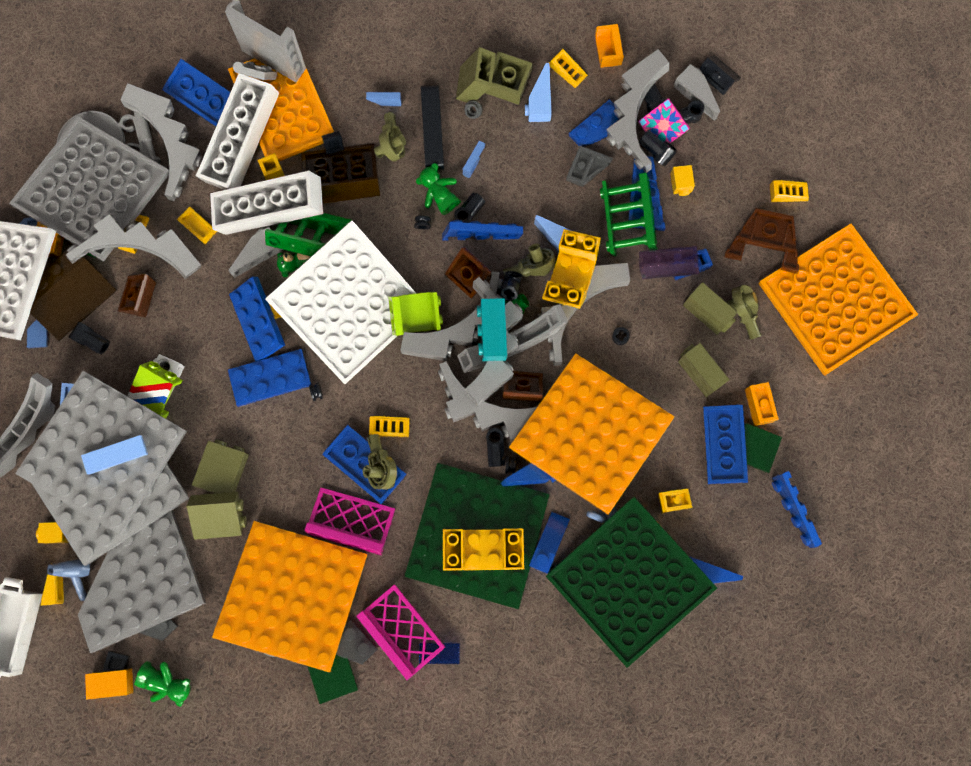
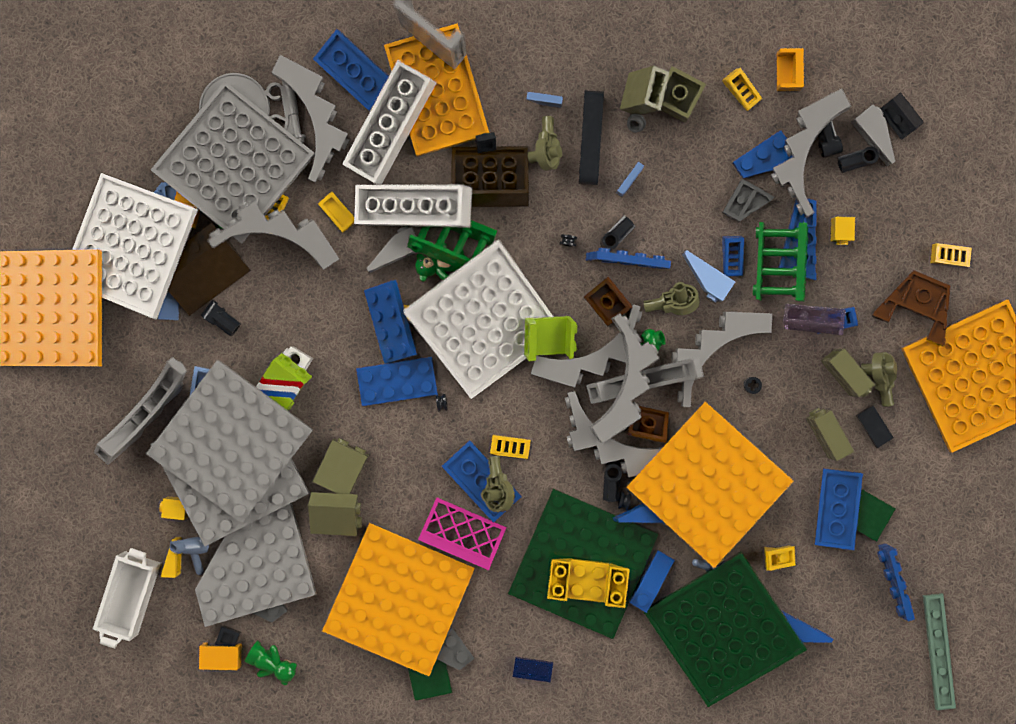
camera: 10 degrees right, 10 degrees up
(114, 454) = (243, 448): light blue tile -> none
(137, 295) = (270, 279): reddish brown slope -> none
(250, 69) = (419, 58): light grey plate -> none
(271, 167) = (420, 163): yellow brick -> none
(390, 646) = (484, 654): dark pink fence -> none
(437, 189) = (588, 207): green piece -> none
(492, 329) = (626, 372): teal brick -> none
(511, 285) = (650, 323): black piece -> none
(539, 101) = (707, 124): light blue slope -> none
(573, 269) = (714, 317): yellow slope -> none
(587, 203) = (726, 256): none -> blue slope
(661, 150) = (826, 196): black piece -> none
(665, 122) = (834, 168): tile -> none
(746, 360) = (874, 426): none -> black tile
(761, 404) = (881, 474): light orange panel -> none
(853, 578) = (939, 651): none -> sand green tile

